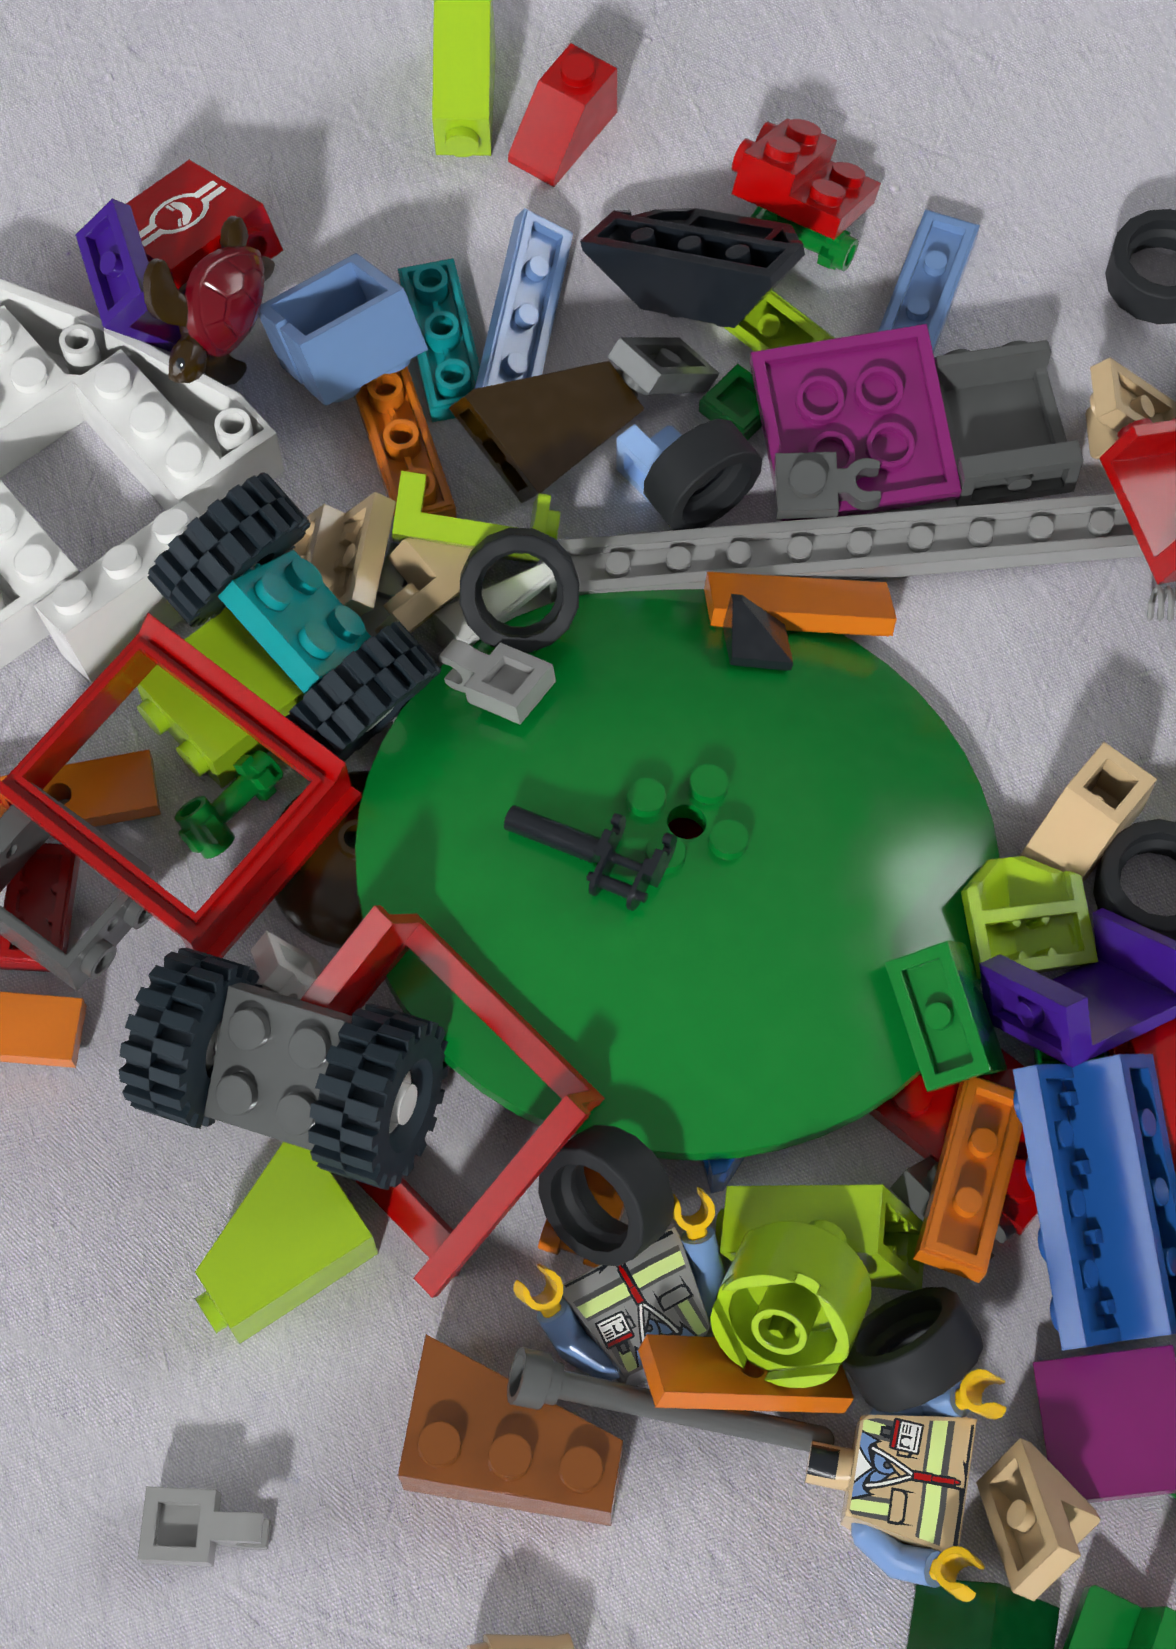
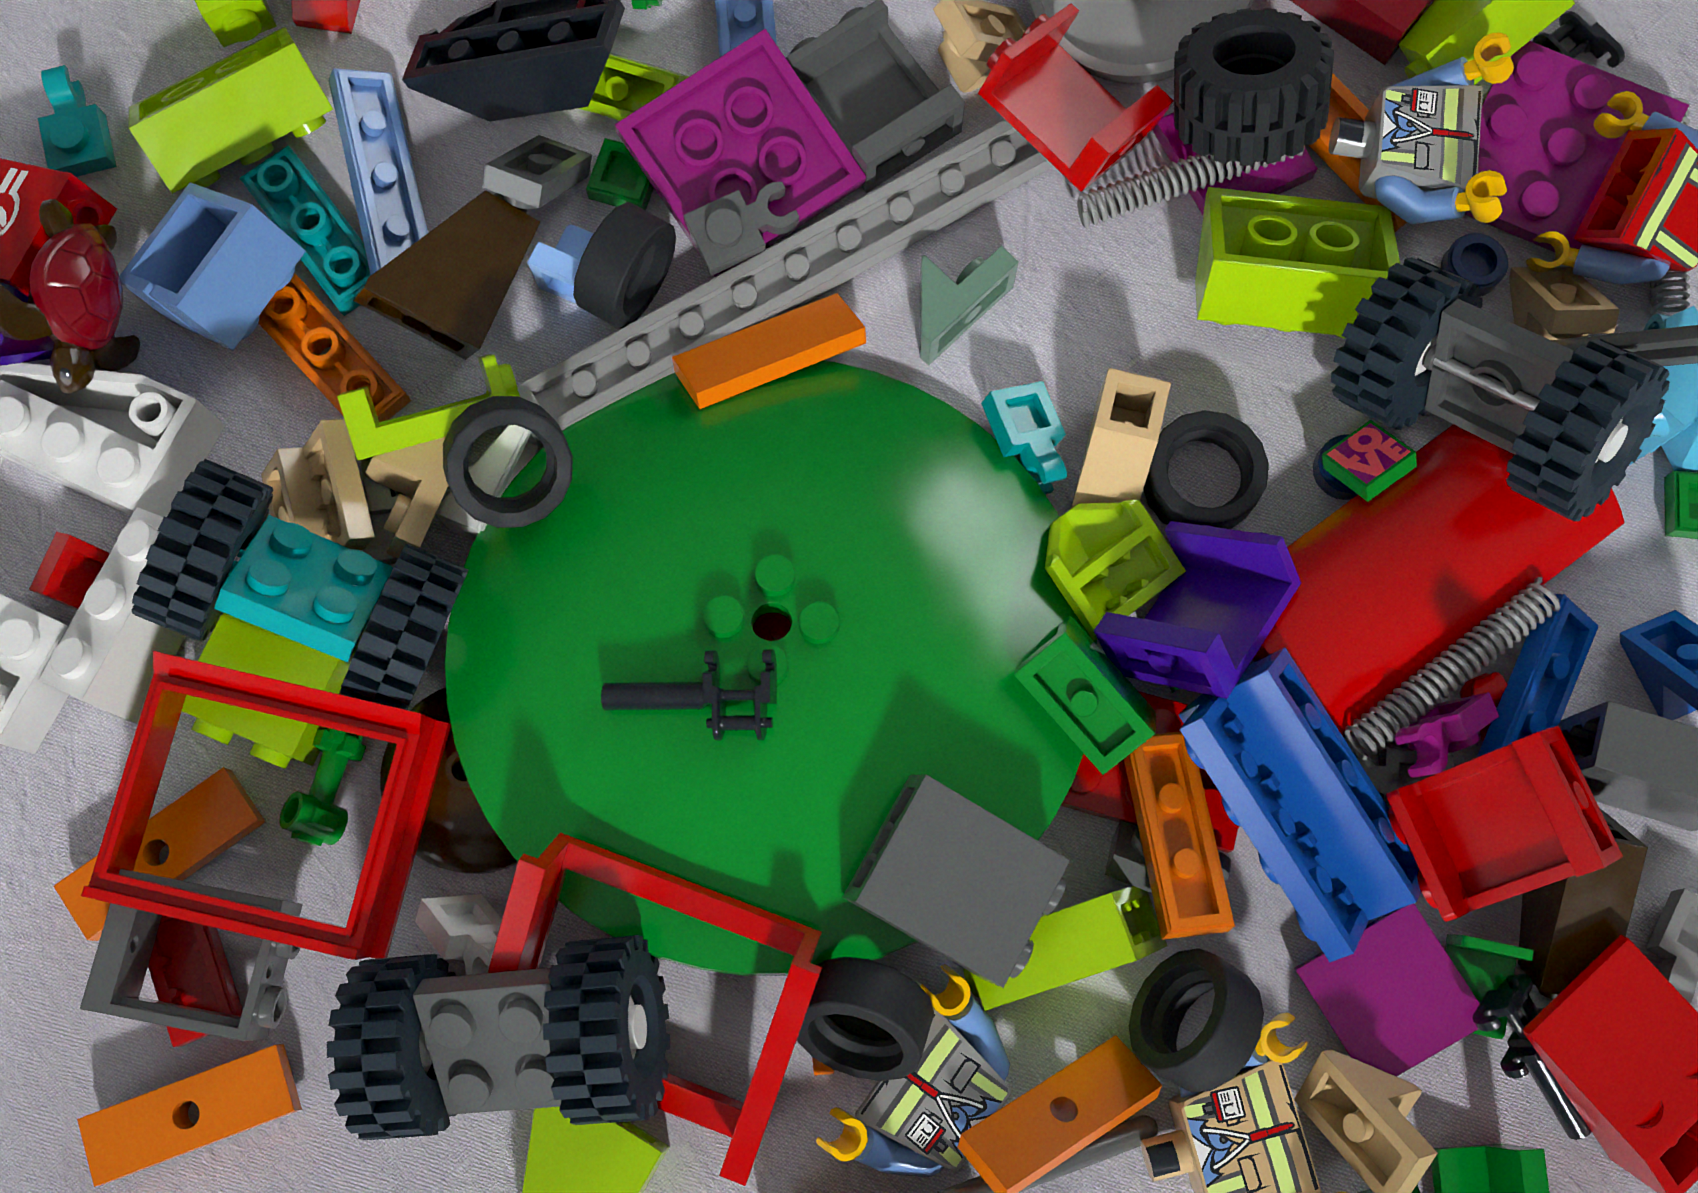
camera: 25 degrees left, 10 degrees up
(97, 530) = (68, 570): none -> red tile
(277, 175) = (77, 134): none -> teal plate
(418, 209) = (229, 112): none -> lime slope
(501, 682) = (533, 560): light grey plate -> none
(748, 1110) = (959, 880): none -> dark grey brick
(755, 636) = (747, 404): black slope -> none
(792, 1302) = (1079, 1039): lime brick -> none
(989, 640) = (953, 307): none -> sand green slope
(1010, 770) = (1028, 426): none -> teal plate

